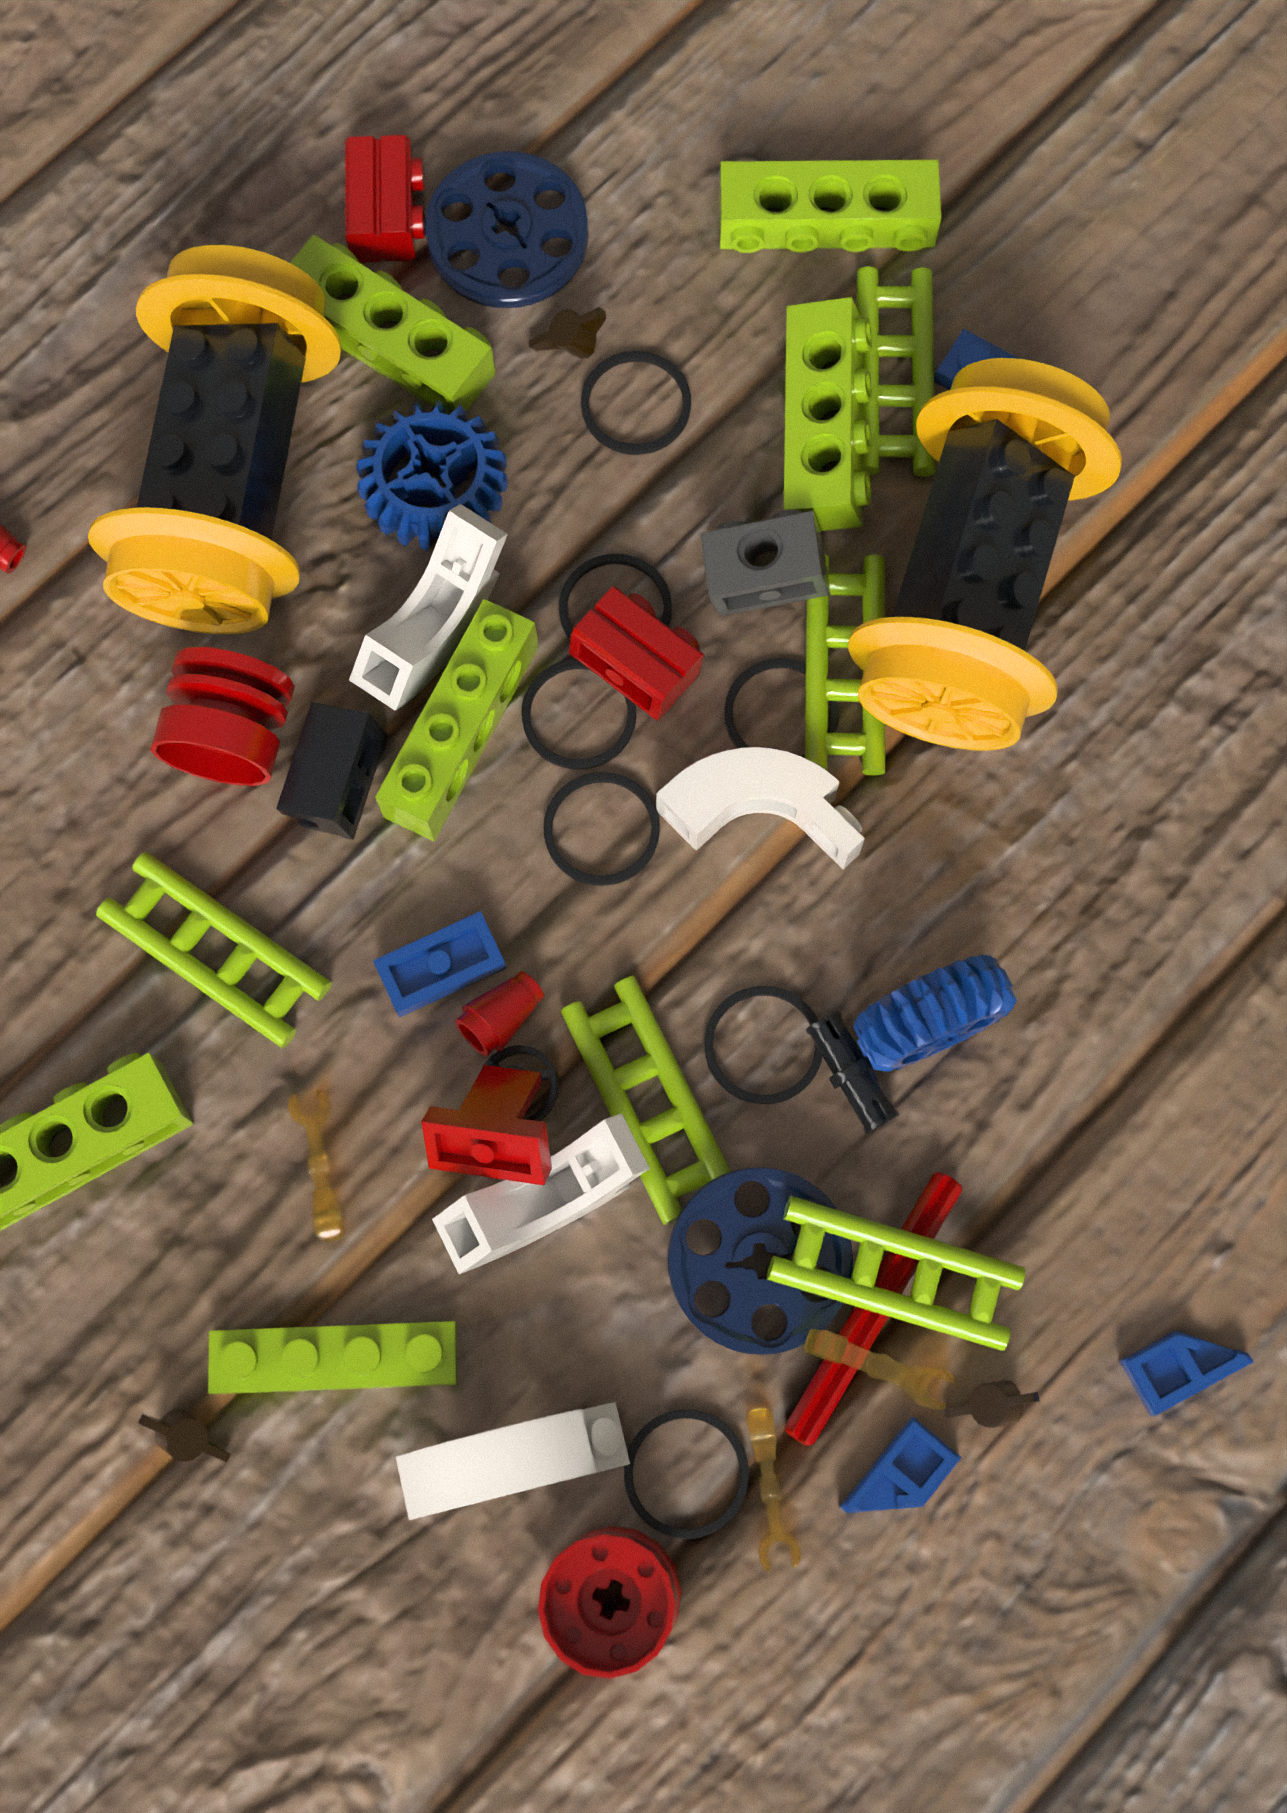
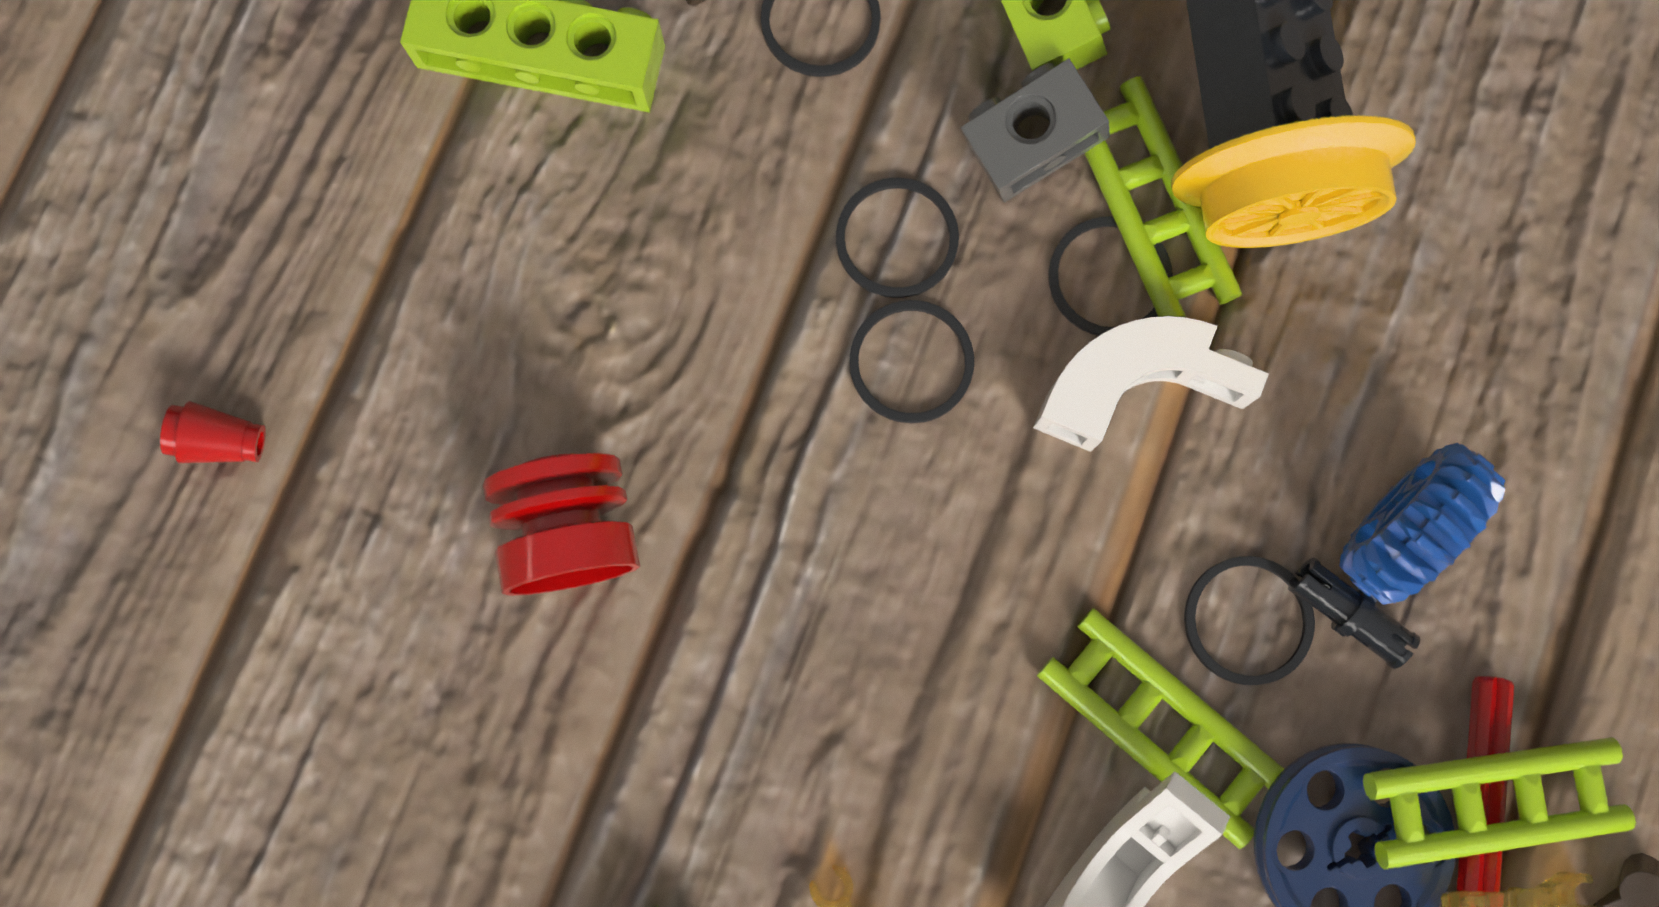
camera: 25 degrees left, 5 degrees up
(219, 985) = (683, 798): lime bar -> none
(238, 348) = (399, 122): brick -> none
(332, 769) = (694, 527): black hinge -> none
(424, 633) = (726, 320): white arch -> none
(439, 964) = (897, 682): blue plate -> none
(458, 720) = (800, 421): lime brick -> none
(463, 450) = (677, 138): blue gear -> none
(489, 1129) = (1038, 840): red piece -> none
(499, 1013) = (980, 707): red cone -> none
(601, 777) = (1023, 424): black piece -> none
(636, 651) = (948, 275): red brick -> none

